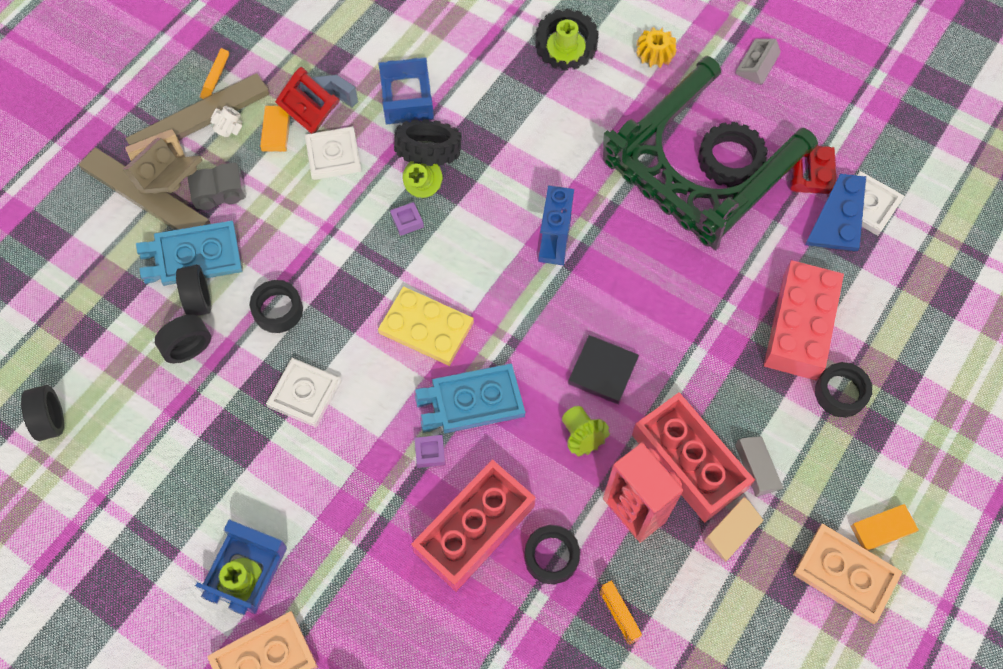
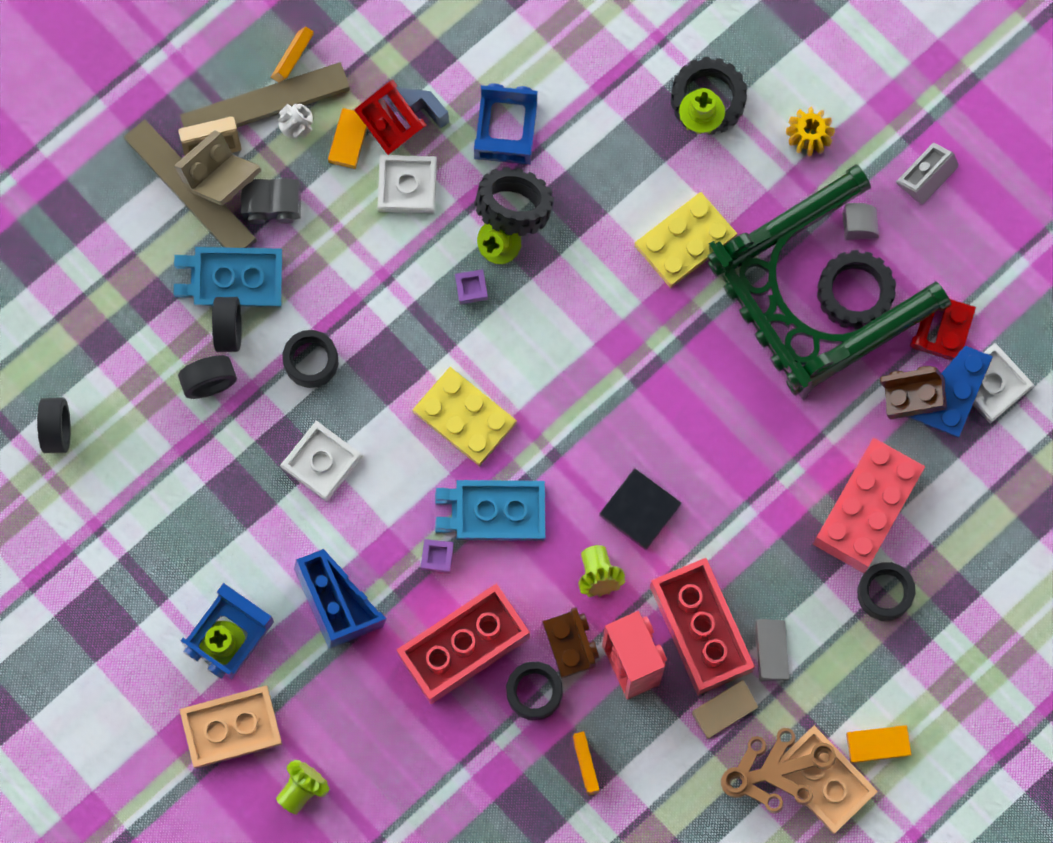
camera: 15 degrees right, 10 degrees up
(342, 514) = (335, 601): none -> blue wedge
(556, 225) = (629, 337): blue window -> none
(574, 501) = (570, 644): none -> reddish brown bracket
(576, 148) = (683, 239): none -> light yellow plate
(717, 104) = (860, 221): none -> light grey brick
(801, 577) = (773, 771): none -> medium nougat plant
(810, 219) = (914, 392): none -> reddish brown bracket

